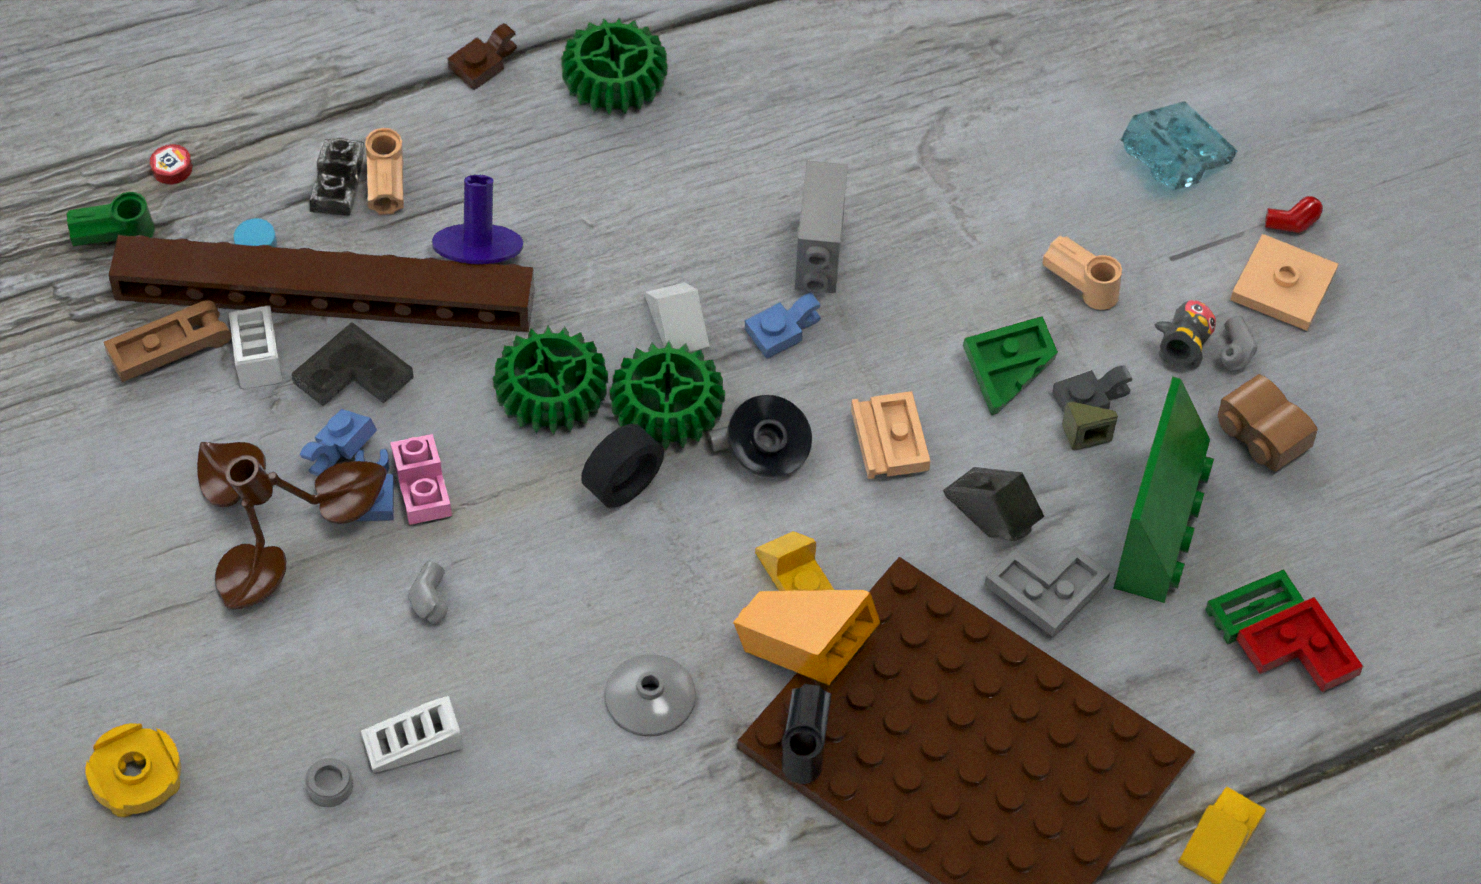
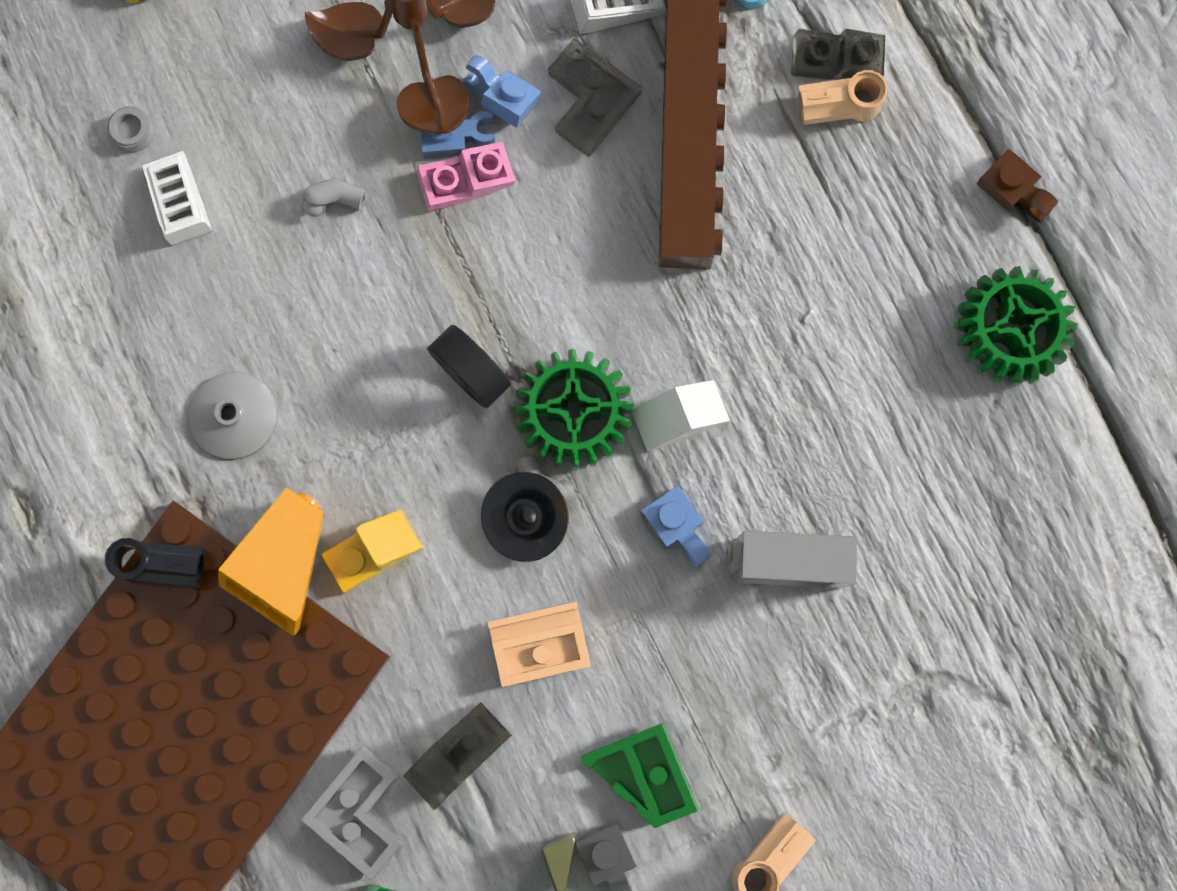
camera: 90 degrees right, 25 degrees up
(477, 238) = (757, 199): dark purple piece -> none
(549, 387) = (603, 280): green gear -> none

